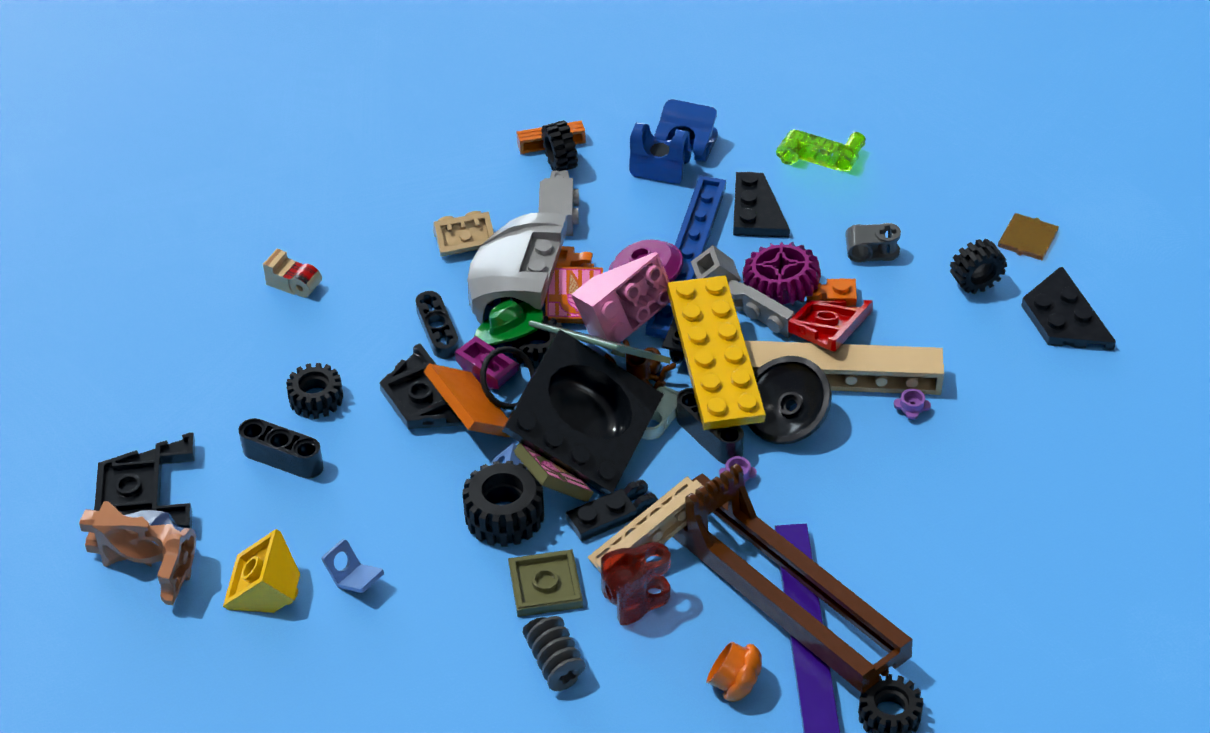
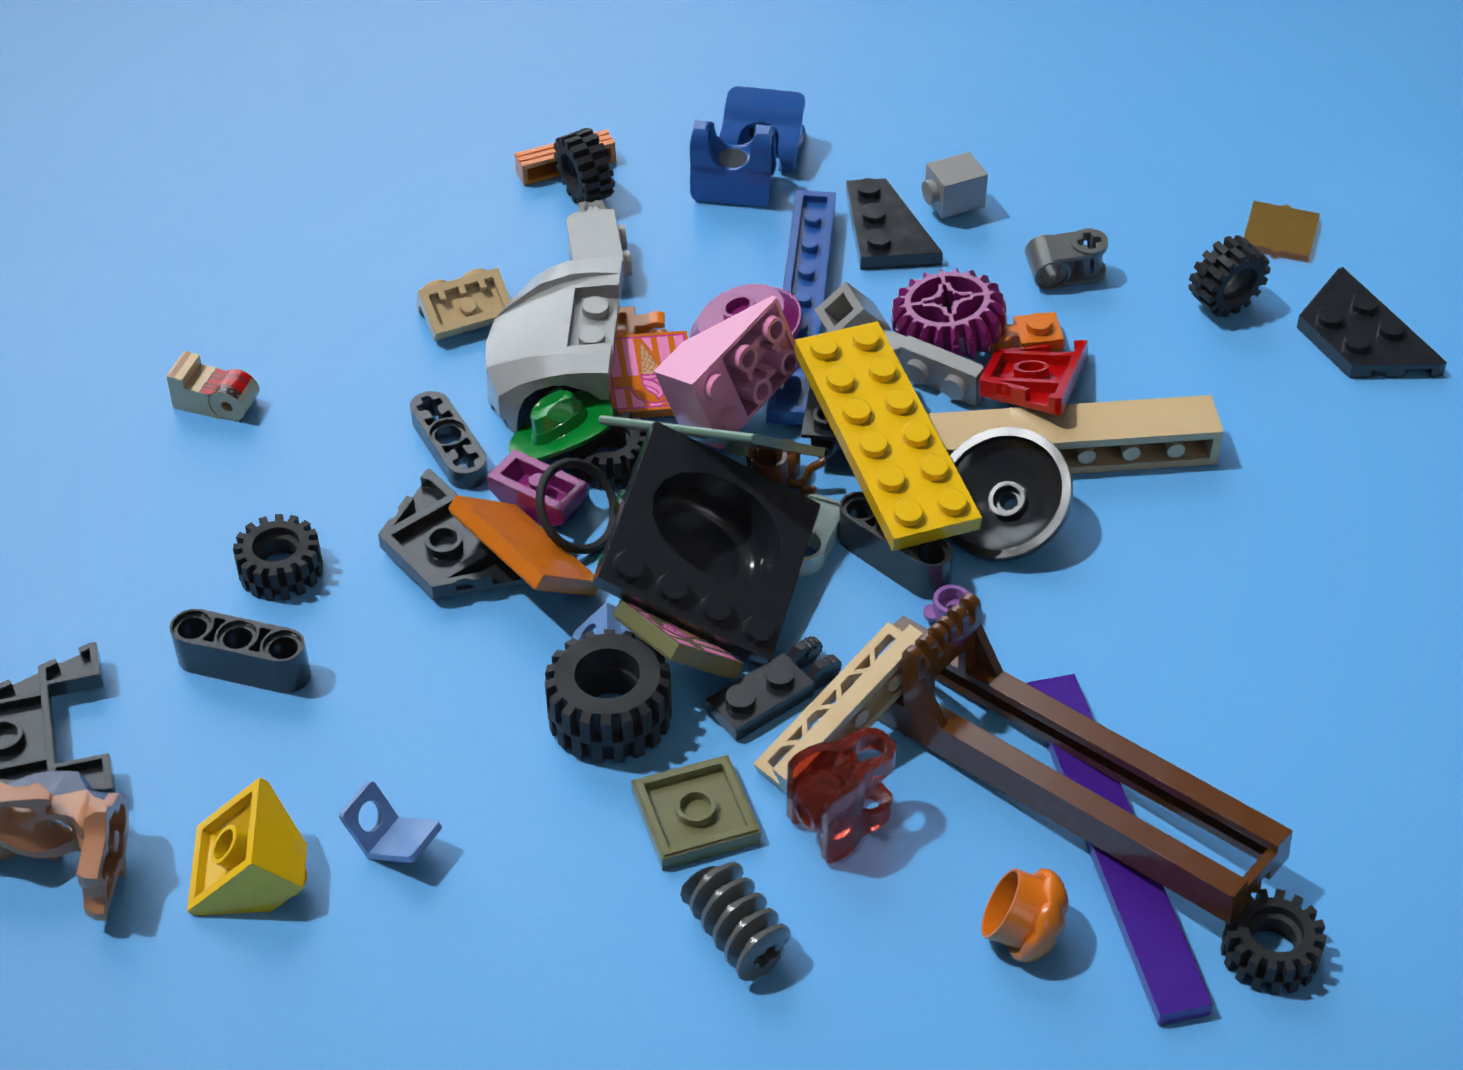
camera: 10 degrees left, 0 degrees up
(807, 182) = (955, 185): none -> light grey brick
(819, 150) = (935, 137): clear neon green beam -> none
(912, 403) = (1182, 480): medium lavender plate -> none

